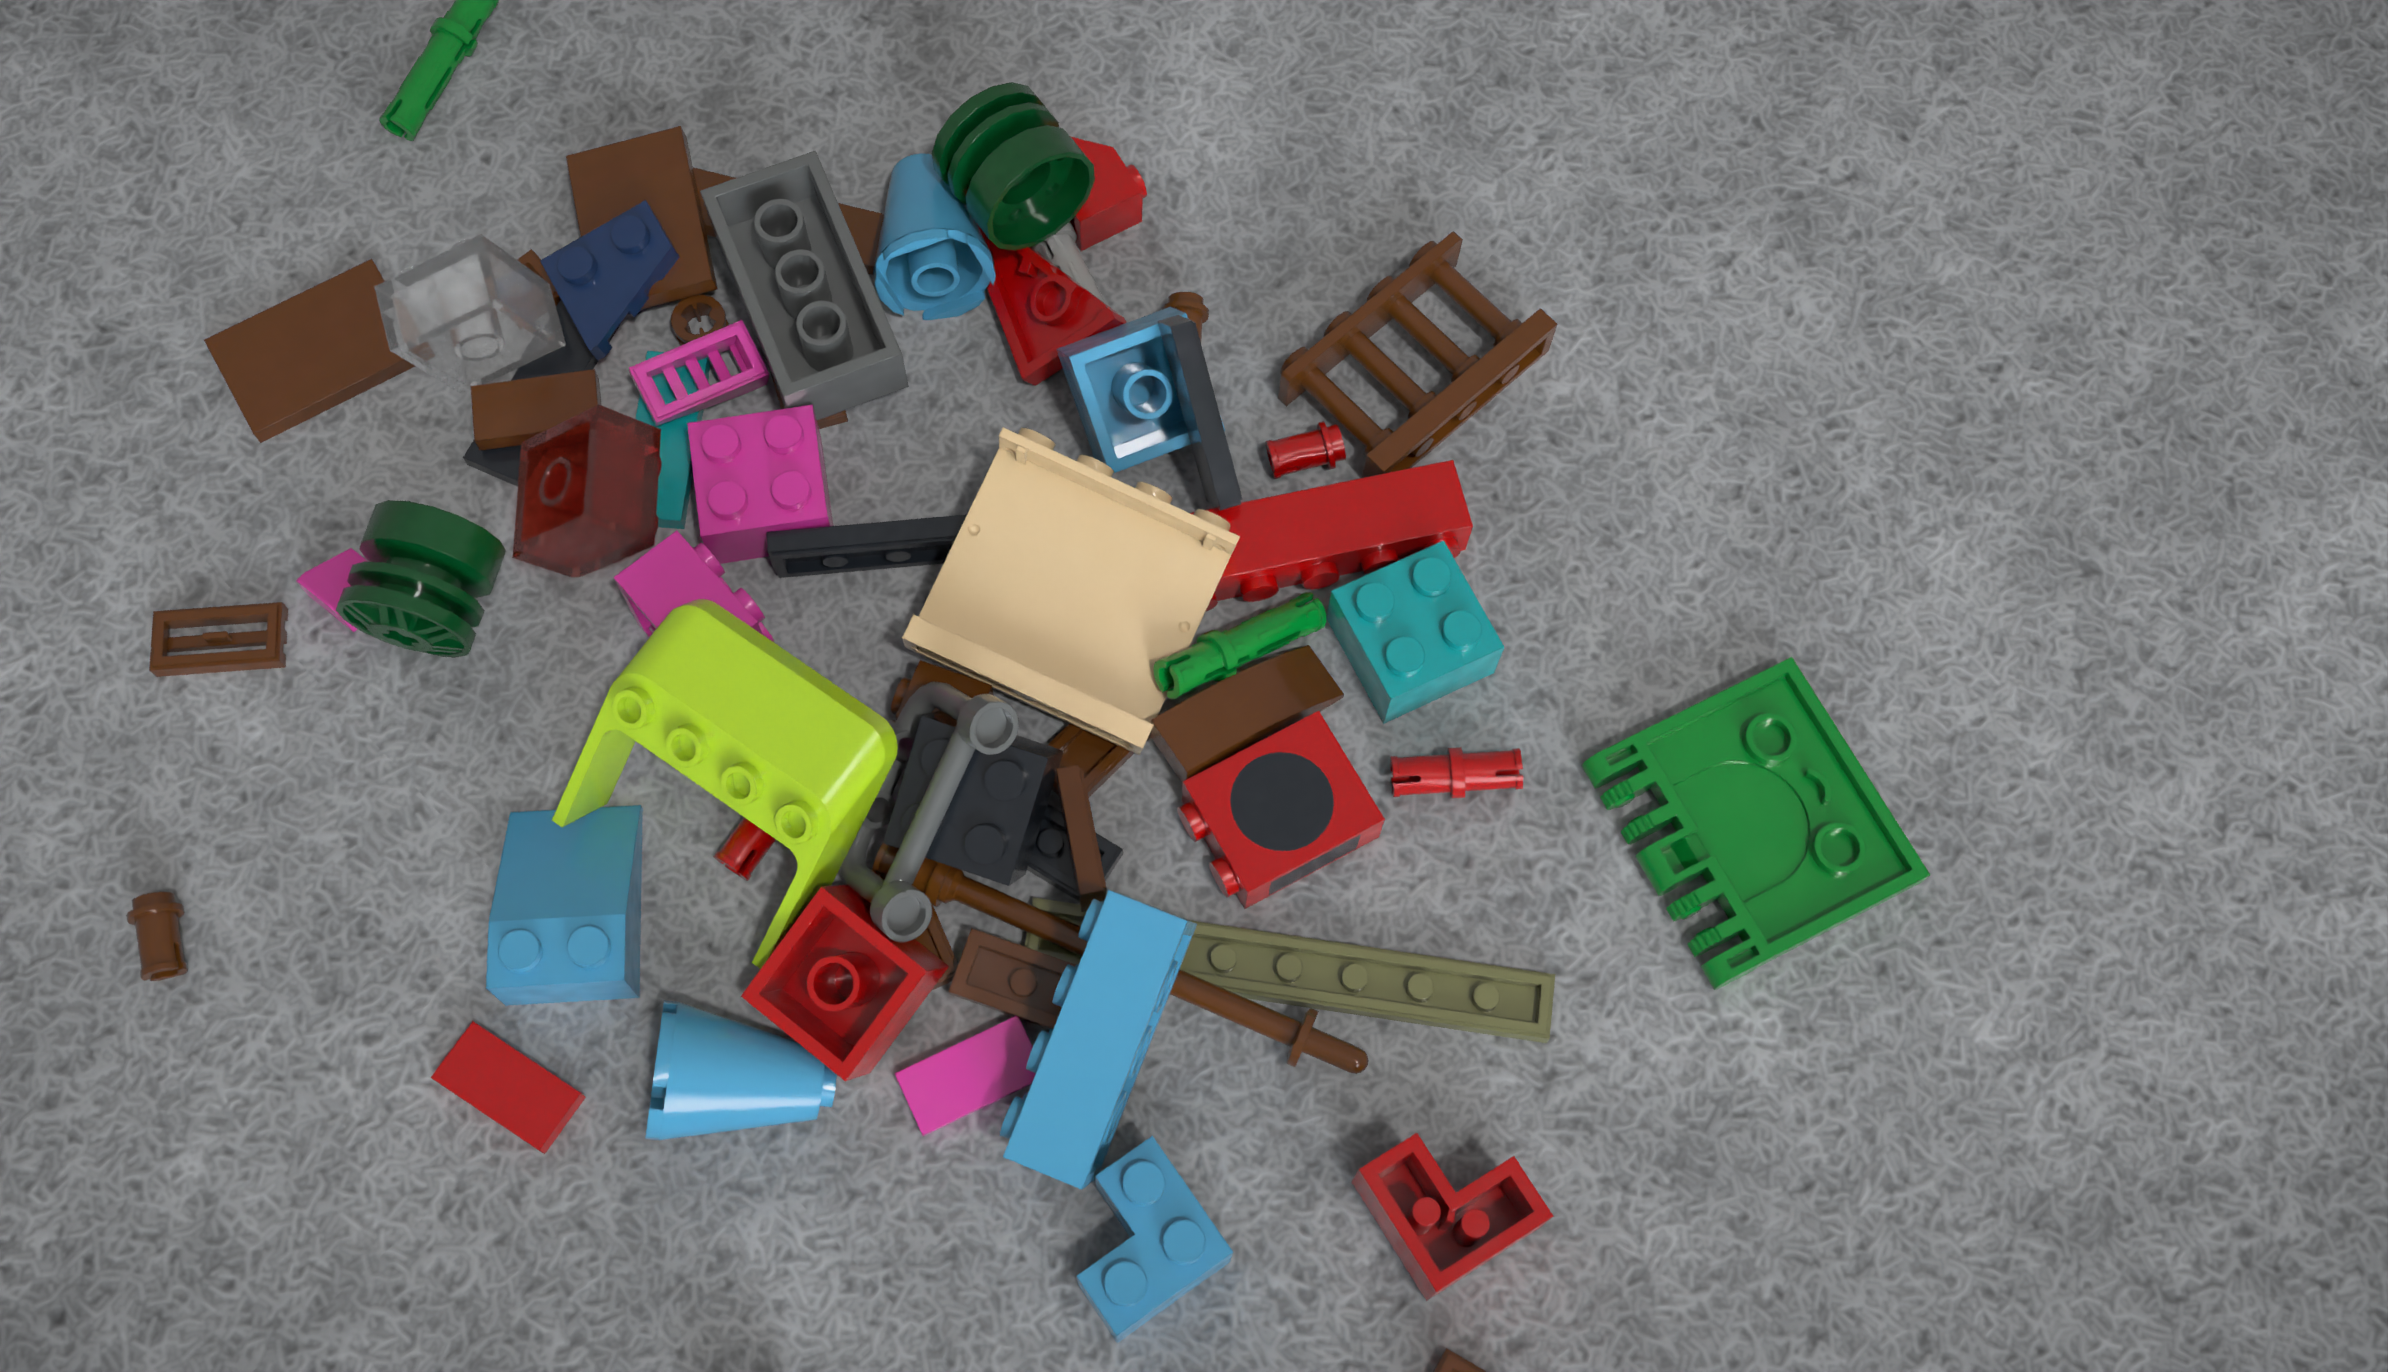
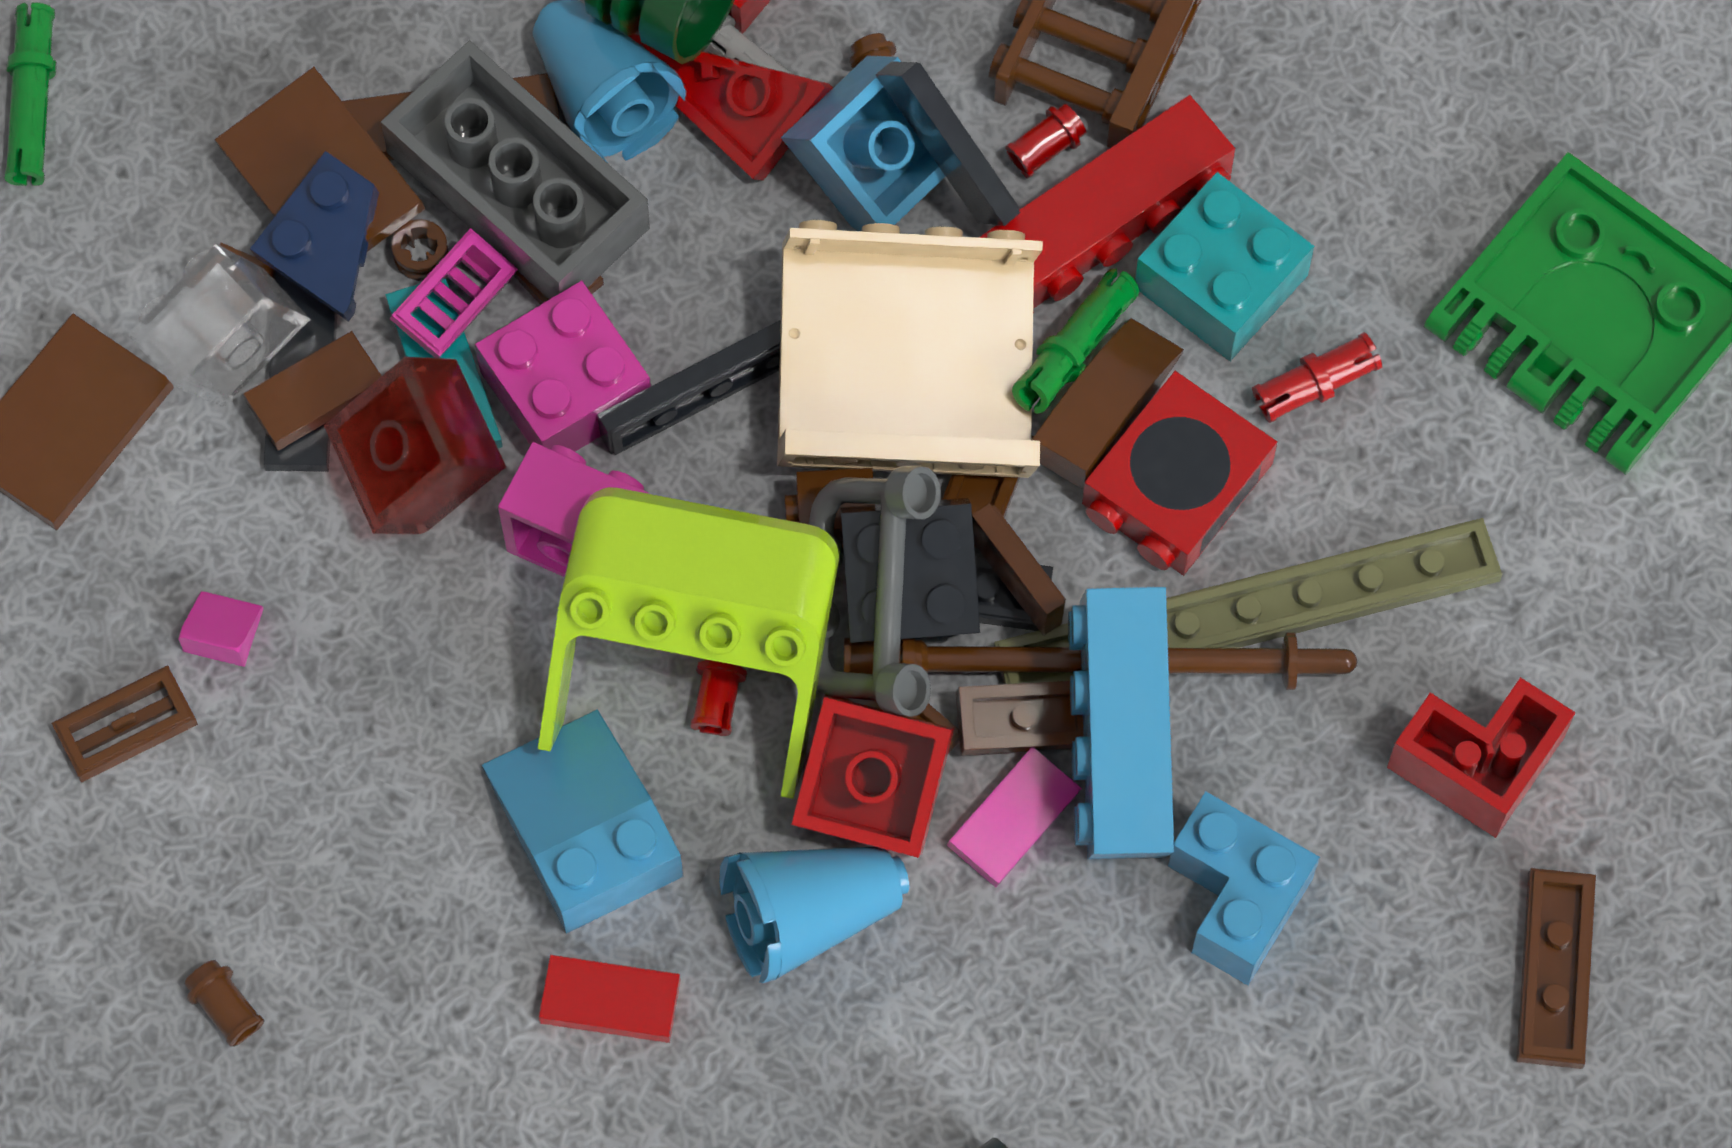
camera: 20 degrees left, 0 degrees up
(421, 578) = (302, 586): dark green wheel -> none

